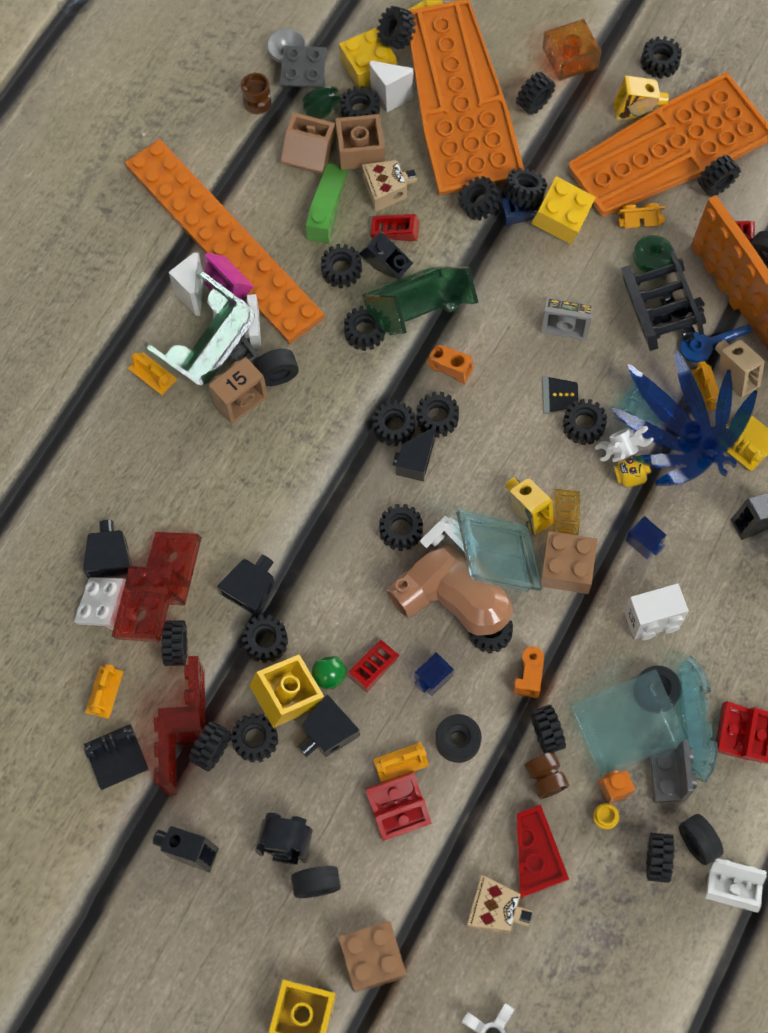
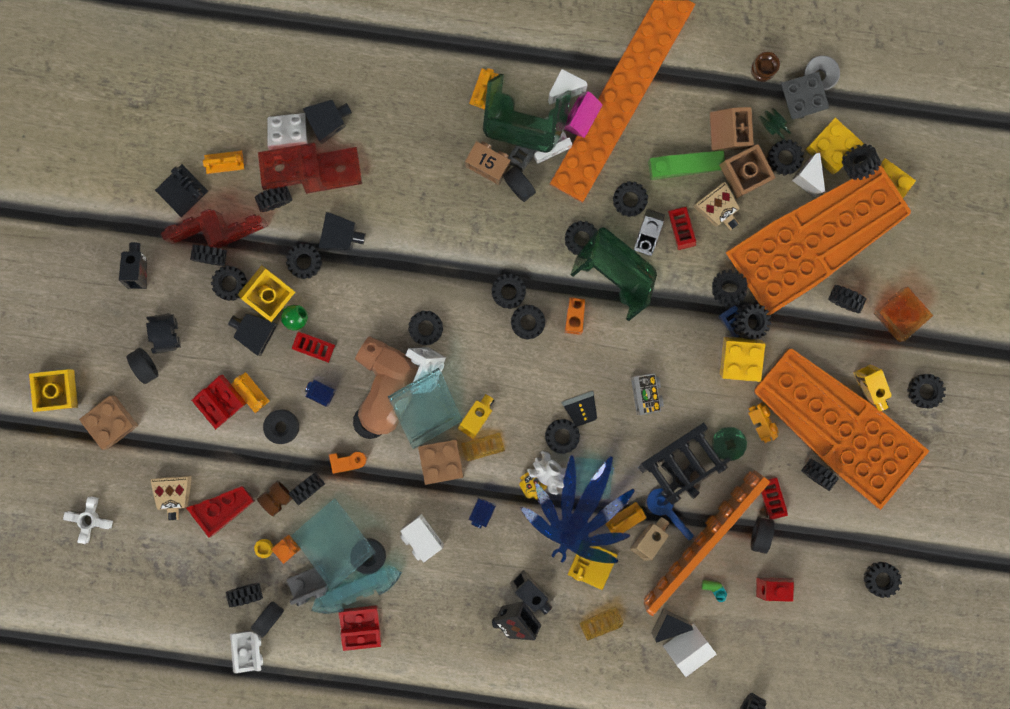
camera: 70 degrees right, 20 degrees up
(415, 456) = (485, 317): black slope -> none

